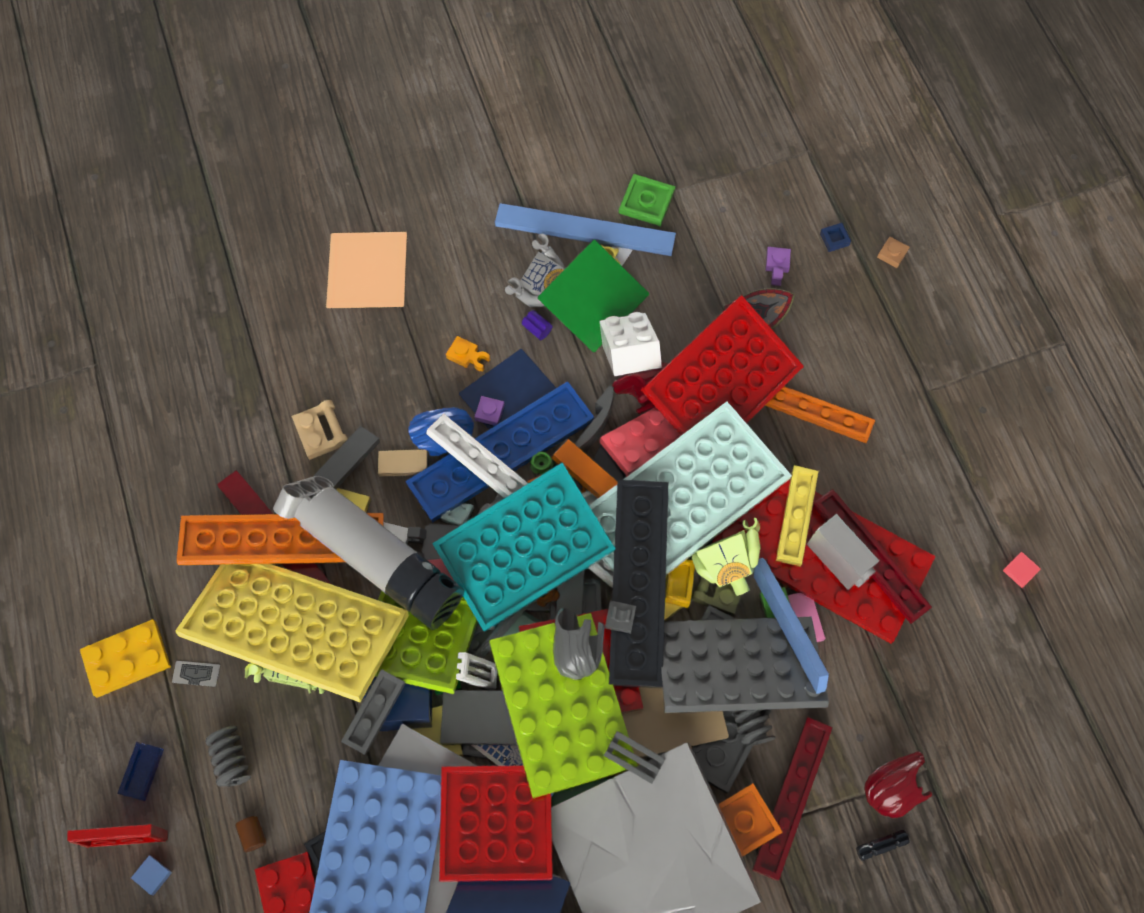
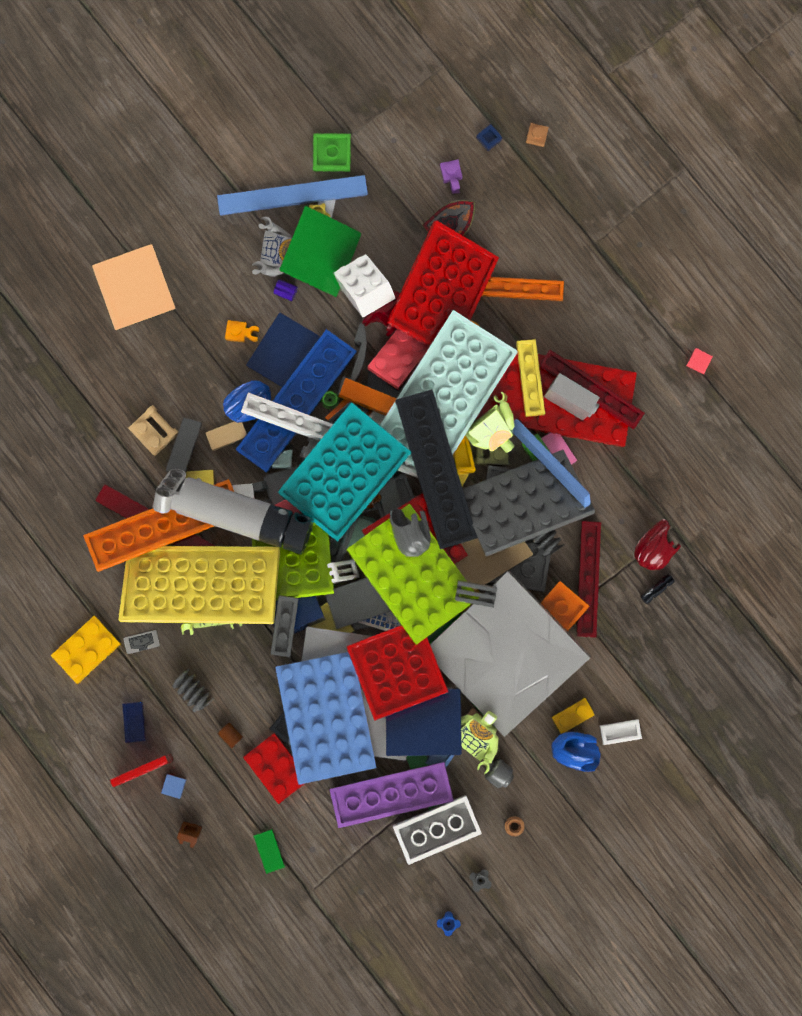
camera: 25 degrees left, 15 degrees up
(489, 411) = (275, 372): medium lavender plate -> none
(620, 617) = (432, 500): dark grey tile -> none

